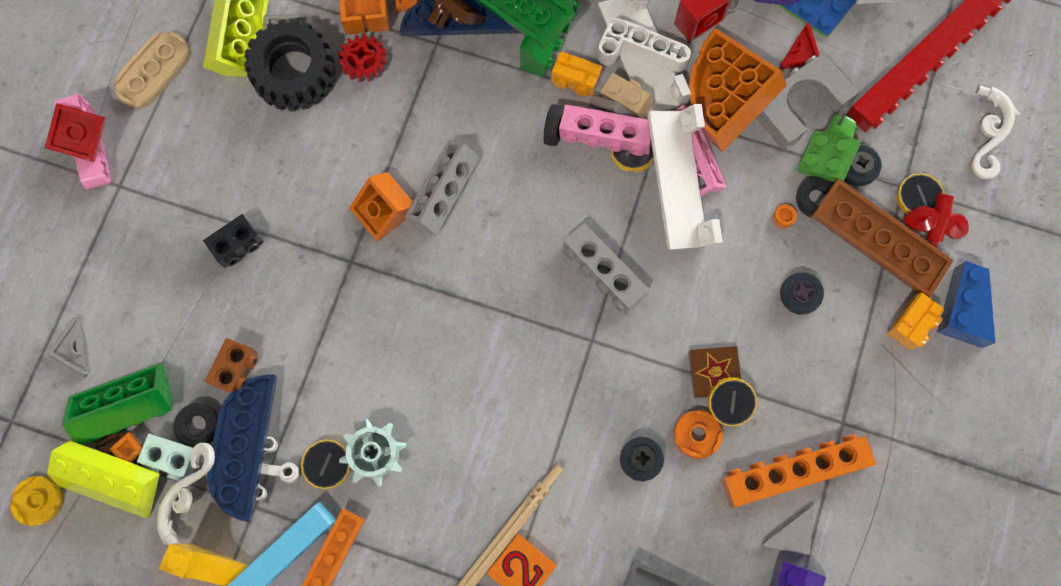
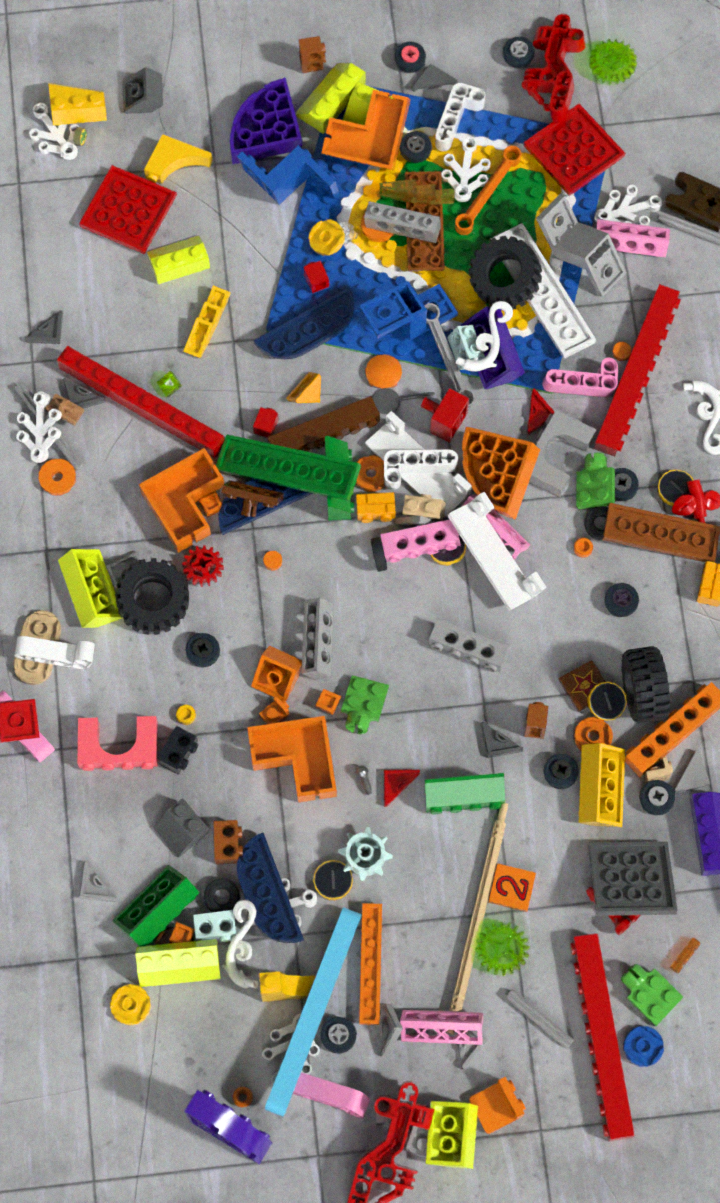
camera: 25 degrees left, 5 degrees down
(144, 199) = (142, 754): none -> coral arch
(178, 91) = (55, 653): none -> white beam
(194, 327) = (181, 828): none -> dark grey slope
(264, 207) = (185, 714): none -> yellow tile
(313, 153) = (202, 657): none -> black wheel
(358, 247) = (275, 712): none -> orange bracket
(367, 303) = (299, 744): none -> orange piece
(418, 358) = (362, 773): none -> flat silver piece
(421, 261) = (328, 702): none -> orange plate
(439, 84) = (272, 560): none -> orange tile
(451, 385) = (396, 782): none -> red tile
(458, 280) = (363, 703): none -> bright green plate
(518, 435) = (464, 793): none -> slope
(579, 30) = (375, 483): none -> orange tile
(585, 392) = (497, 743): none -> dark grey tile
(640, 388) = (536, 720): none -> dark orange brick
(680, 499) = (601, 785): none -> yellow slope
(730, 541) = (657, 804): none -> black wheel
(751, 514) = (659, 774): none -> tan bracket
(788, 406) = (646, 684): none -> black tyre
(840, 21) = (553, 379): none -> bright pink beam
(924, 23) = (622, 351): none -> orange tile

